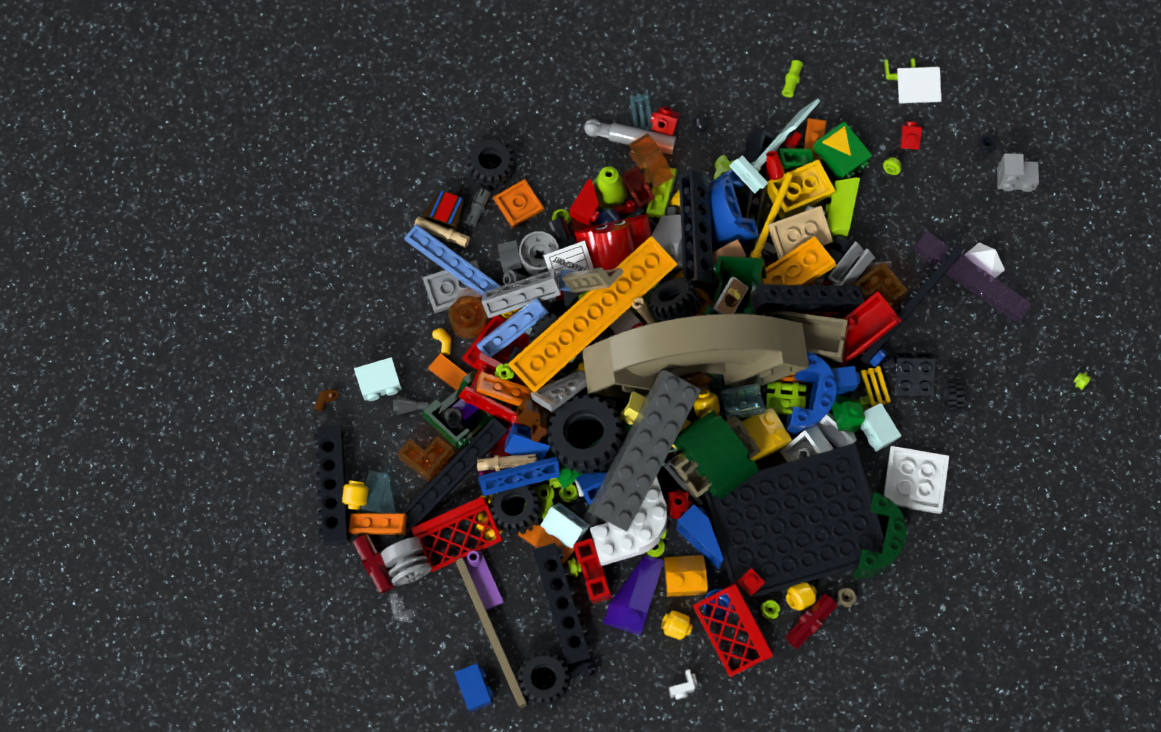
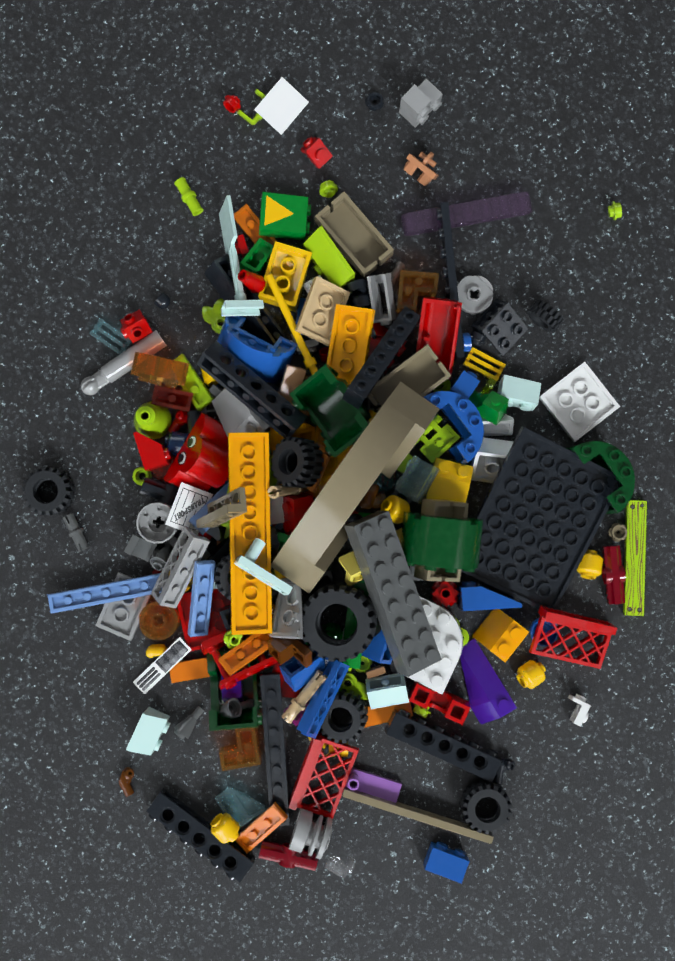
camera: 55 degrees left, 15 degrees up
(434, 349) = (162, 665): none -> sticker
(446, 208) = (55, 558): torso -> none
(449, 235) = (78, 573): tan pin -> none
(518, 203) = (100, 497): orange tile -> none
(570, 328) = (248, 564): none -> light aqua piece
(573, 506) = (375, 671): none -> medium nougat tile
(730, 297) = (330, 415): tile -> none
(750, 582) = (550, 594): red plate -> none
(770, 614) = (583, 595): lime plate -> none
(839, 628) = (635, 558): none -> lime tile
(876, 210) = (354, 235): none -> dark tan piece
(887, 50) = (232, 103): none -> red plate
(911, 341) = (485, 294): none -> light grey plate
(972, 224) = (414, 163): none -> nougat hips
(986, 259) = (462, 191): white slope -> none

